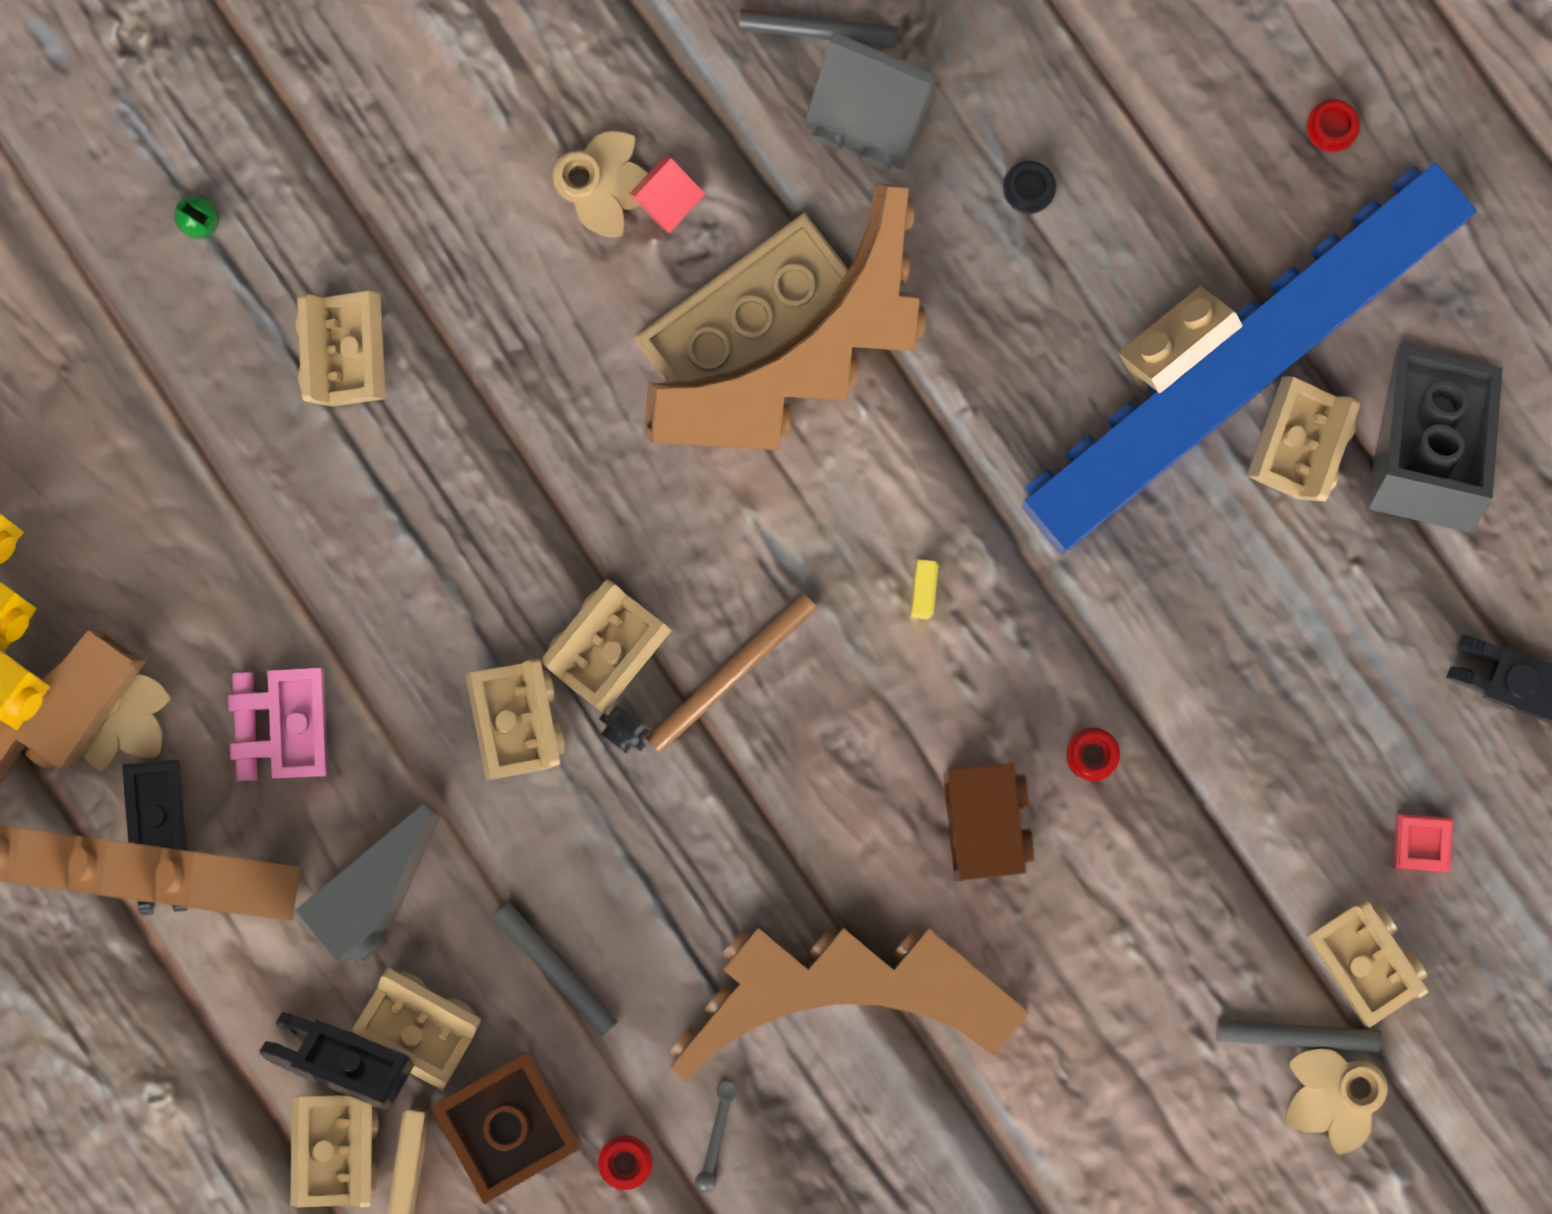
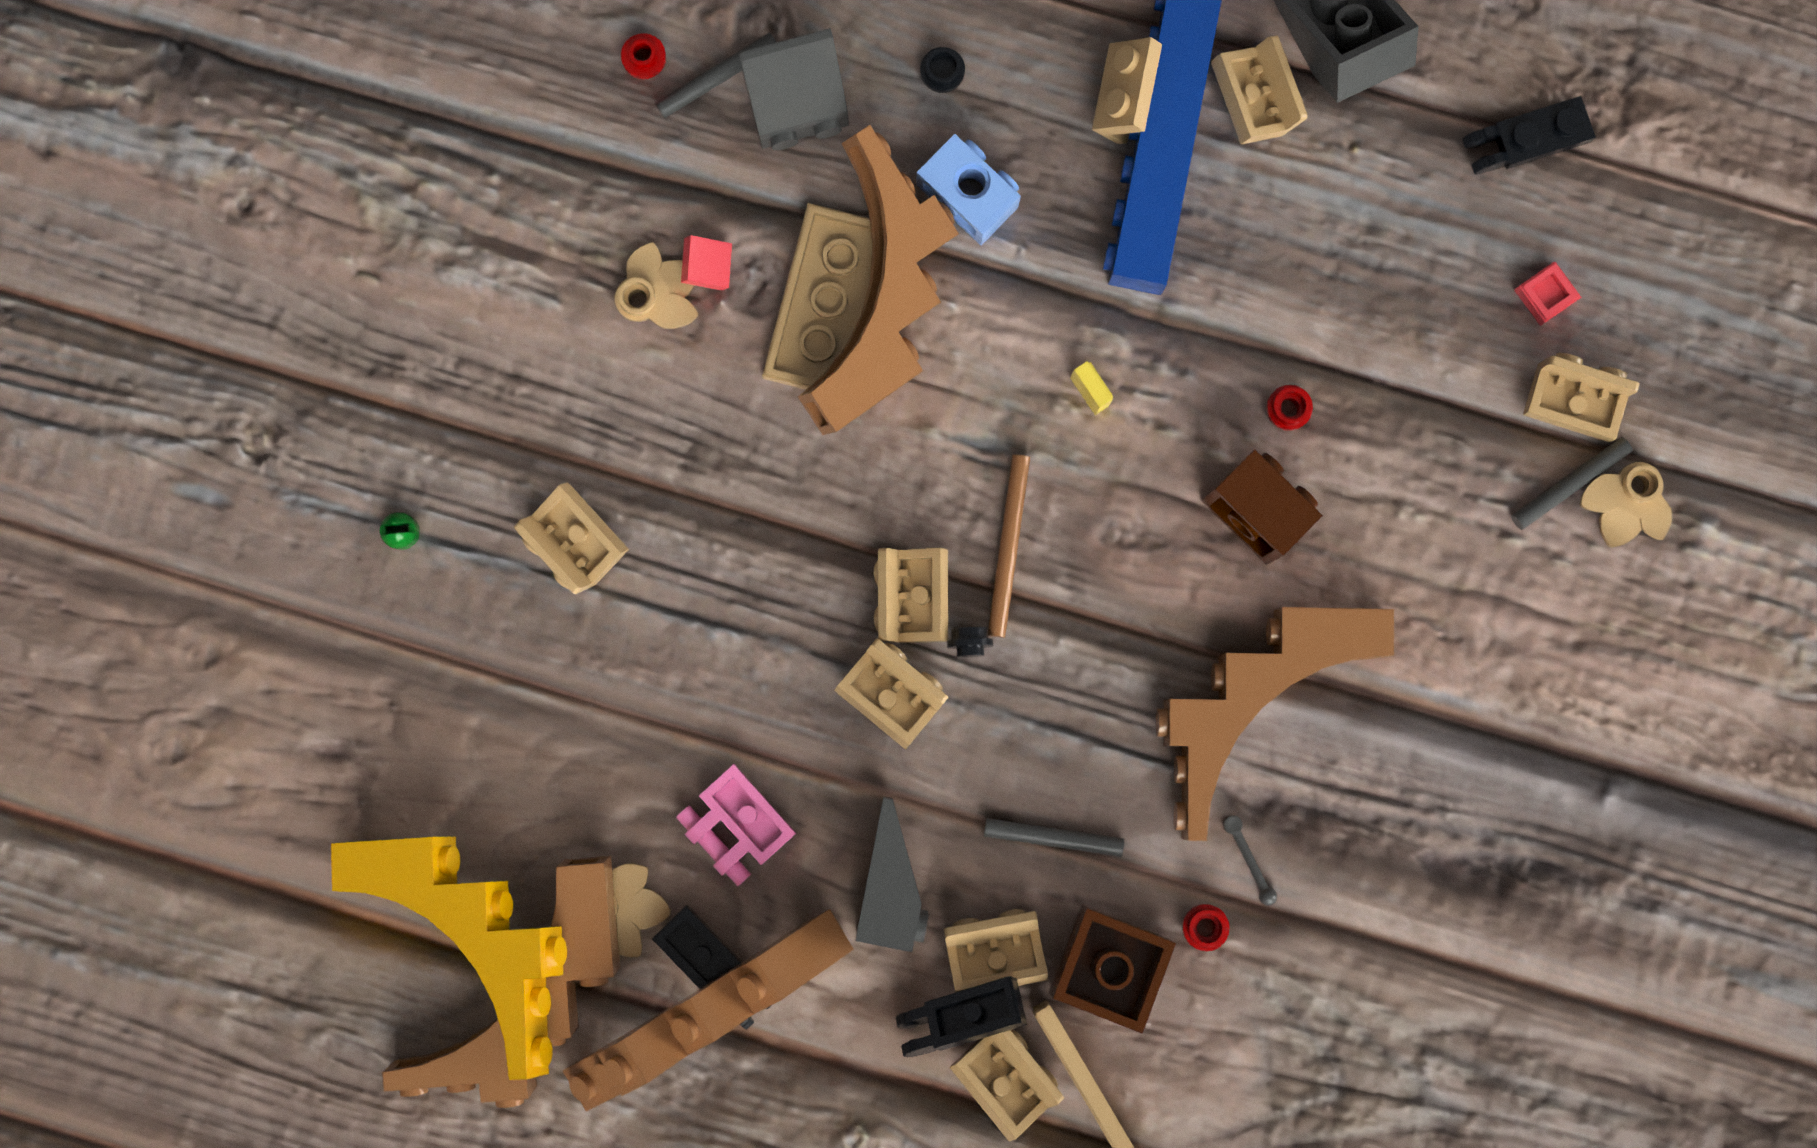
camera: 45 degrees left, 0 degrees up
(955, 284) = (976, 214): none -> light blue brick

